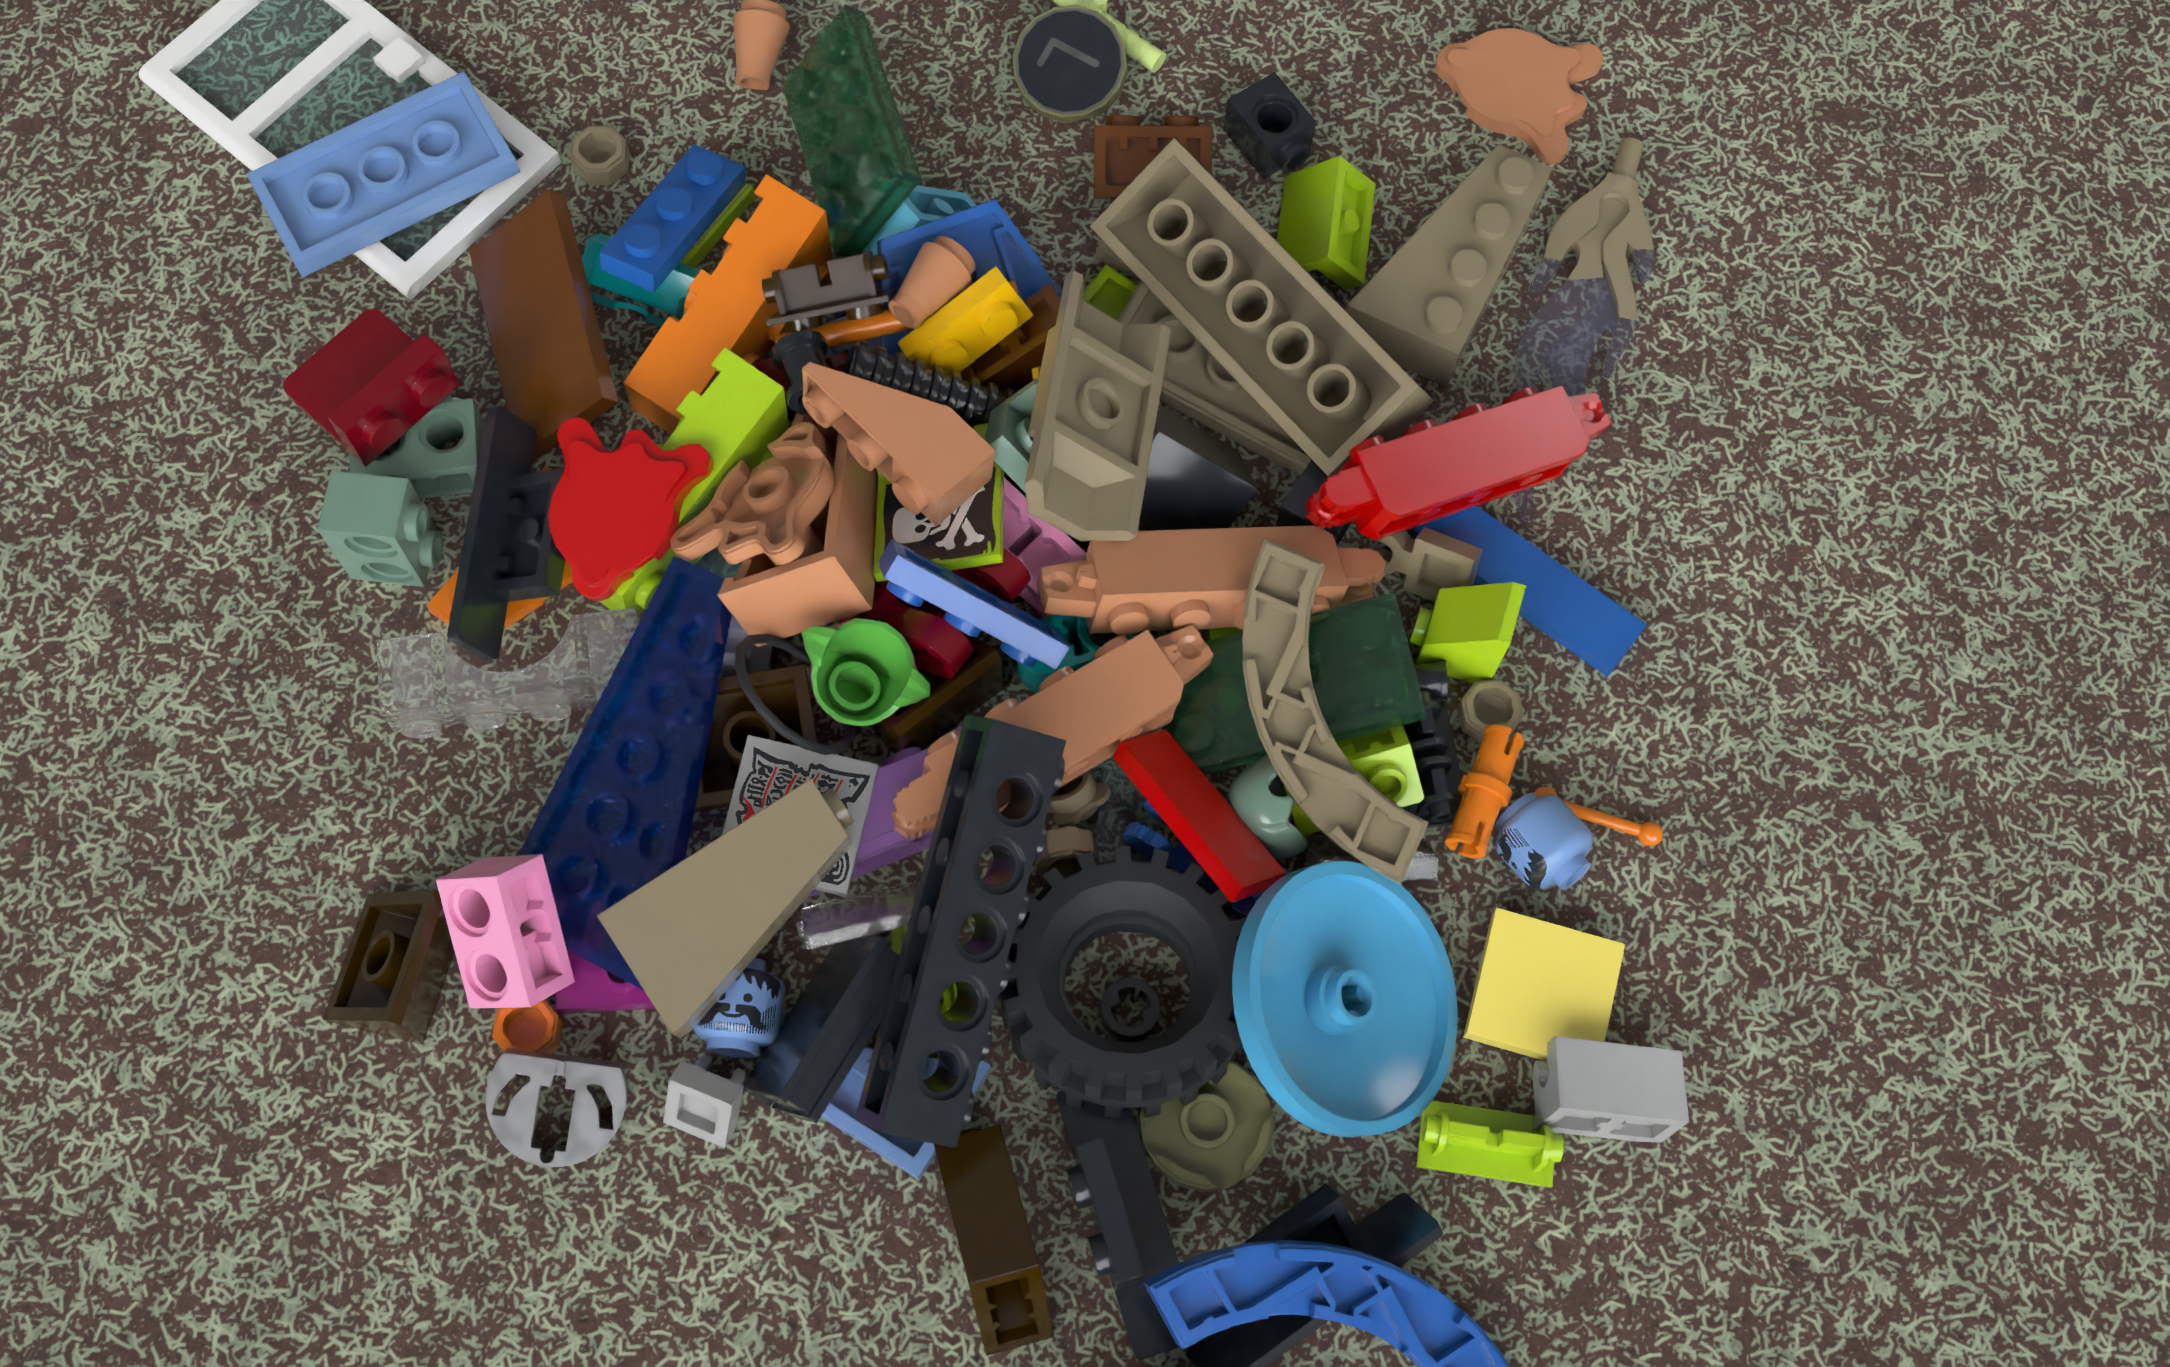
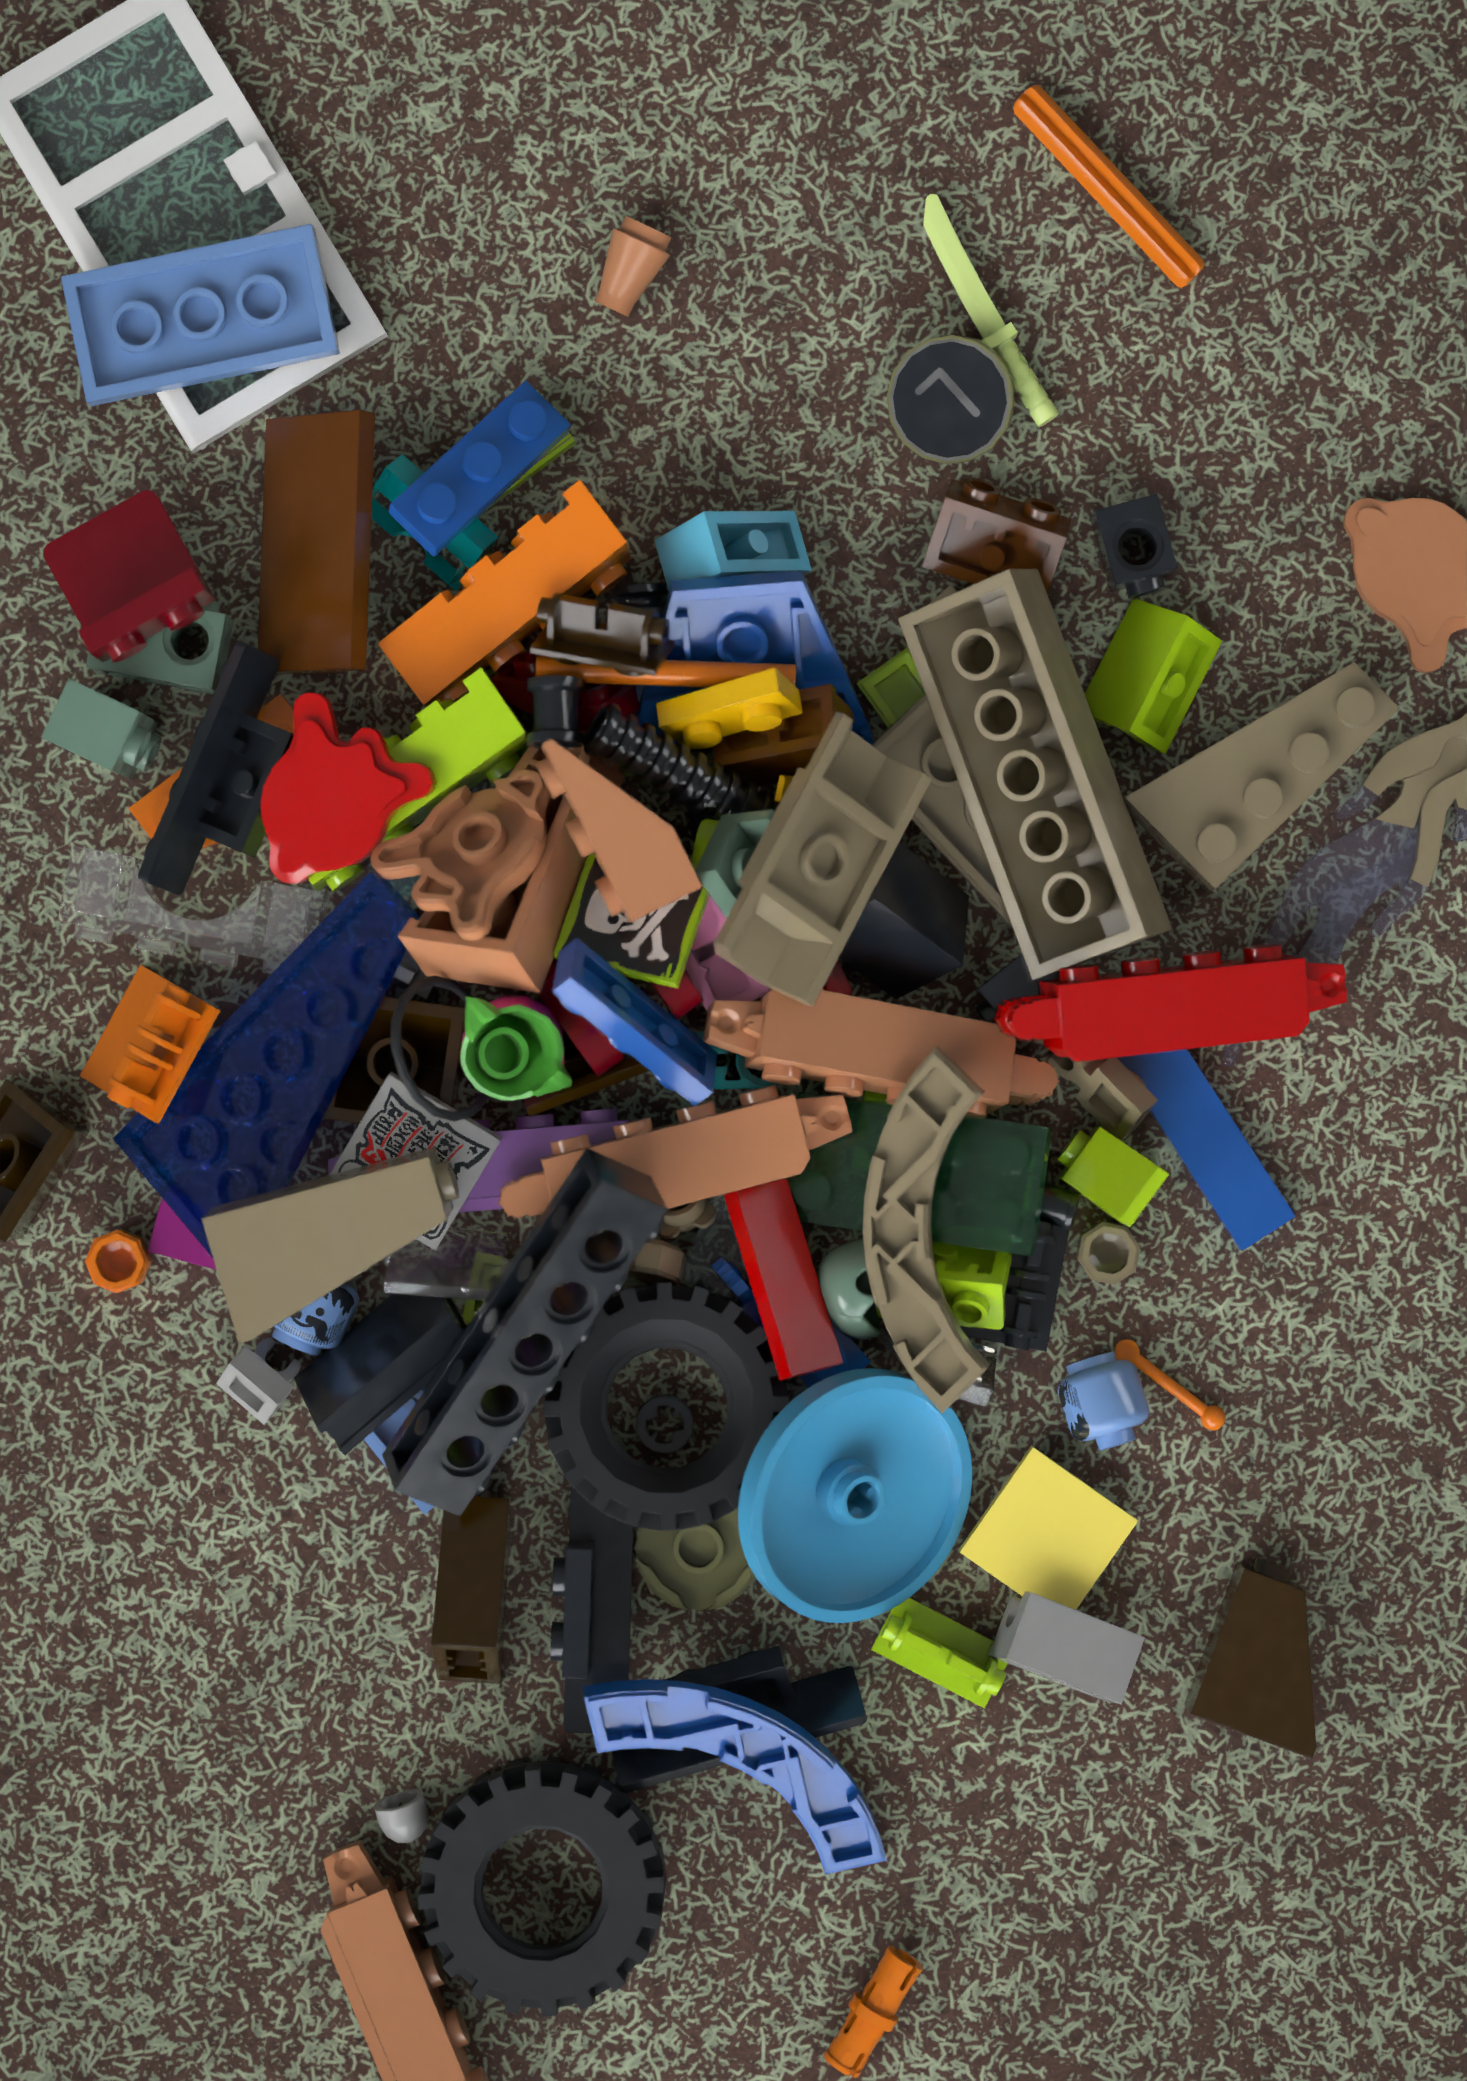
camera: 25 degrees right, 20 degrees up
(504, 798) = (149, 1044): none -> orange hinge
(505, 931) = (120, 1179): bright pink brick -> none
(586, 1131) = (116, 1310): flat silver piece -> none
(600, 155) = (428, 349): dark tan tile -> none
(851, 132) = (687, 431): clear green plate -> none
(934, 279) = (707, 657): nougat cone -> none
(1484, 791) = (1064, 1338): orange pin -> none
(1800, 1042) = (1259, 1661): none -> dark brown slope

